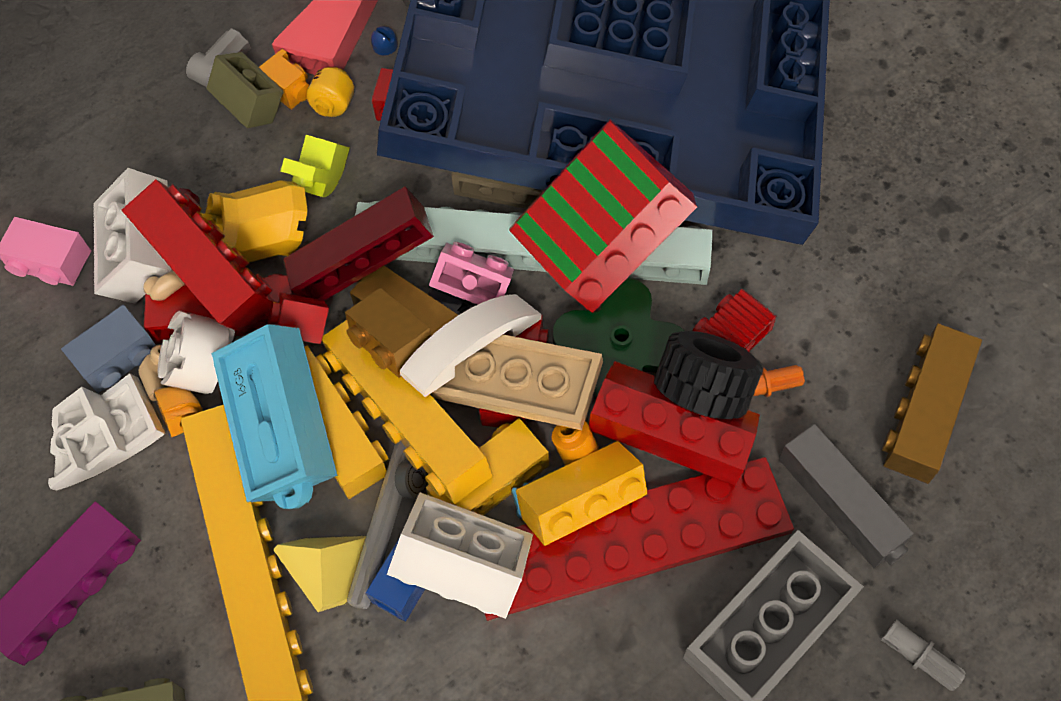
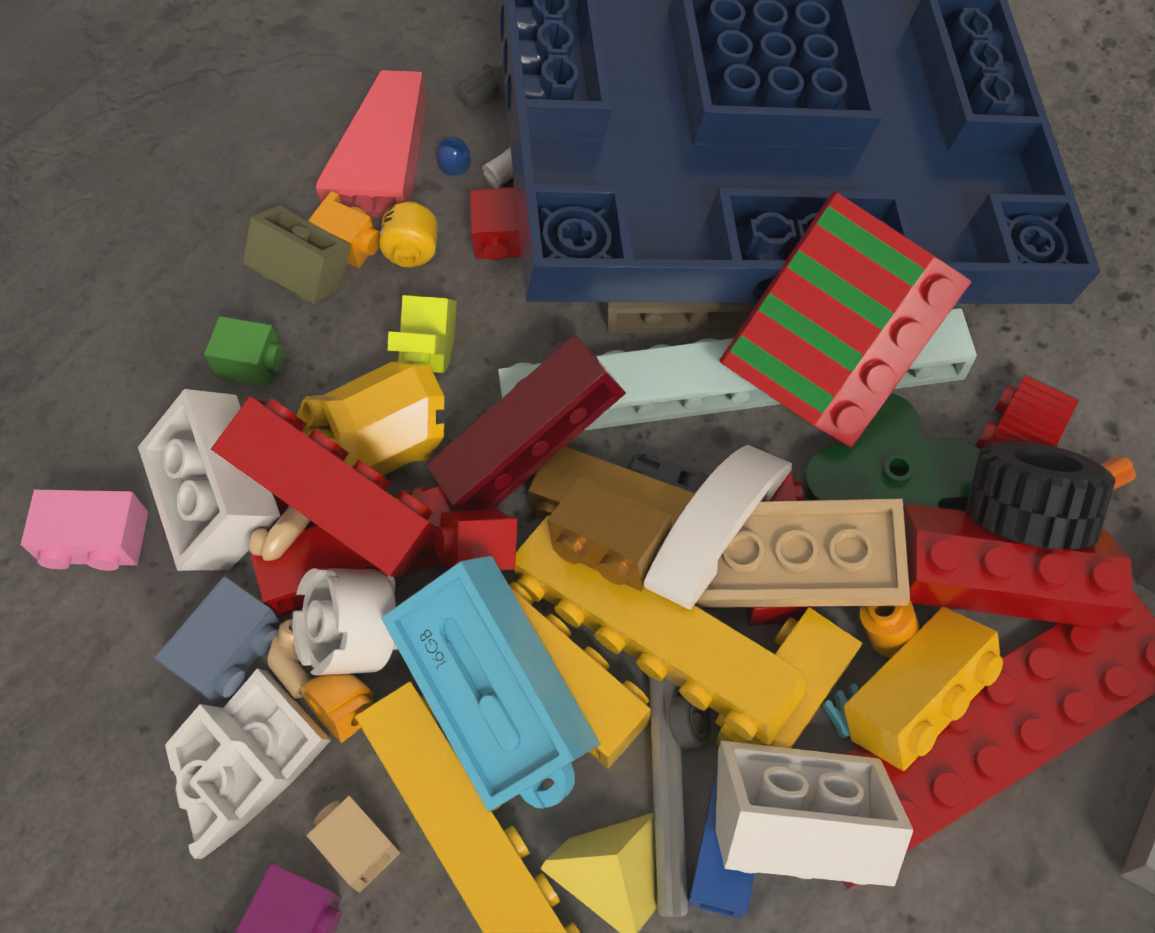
camera: 15 degrees left, 0 degrees up
(156, 504) = (352, 843): none -> tan brick
(188, 152) = (244, 351): none -> bright green brick
(201, 64) = (229, 235): light grey piece -> none
(470, 275) = (681, 434): bright pink brick -> none

